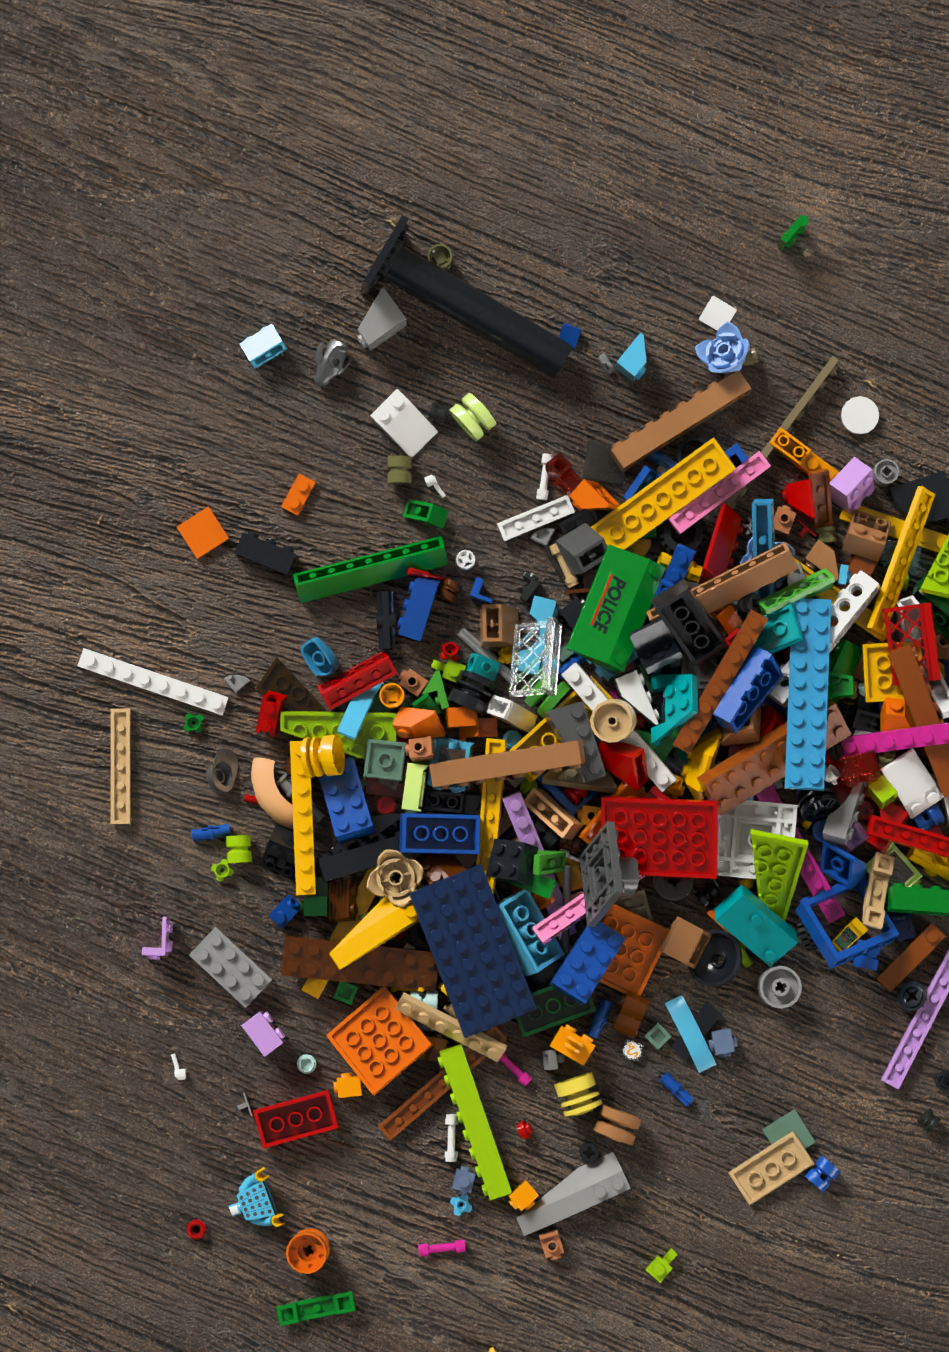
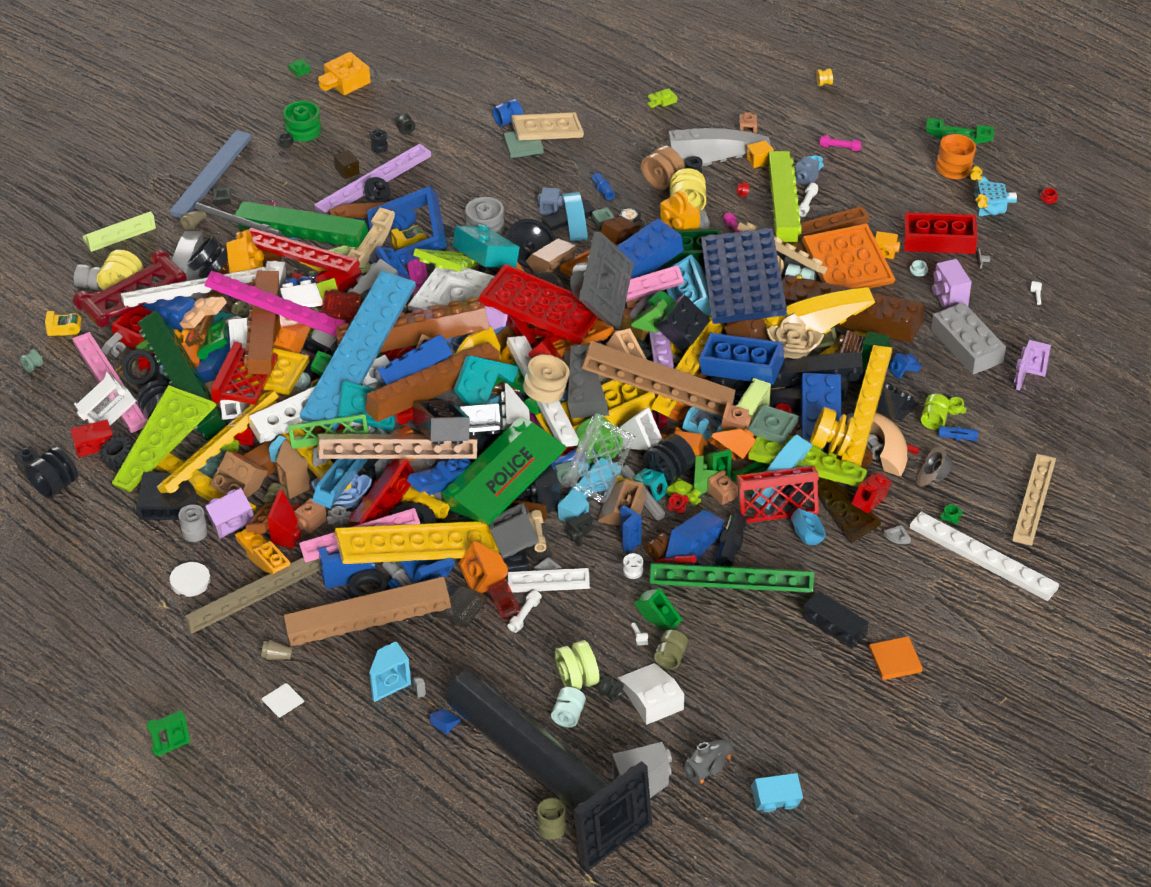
camera: 160 degrees left, 40 degrees down
(298, 494) = (783, 663): orange plate -> none
(392, 696) = (747, 464): light orange wheel -> none
(469, 384) = (568, 707): none -> light aqua wheel
(725, 352) = (303, 637): light blue brick -> none

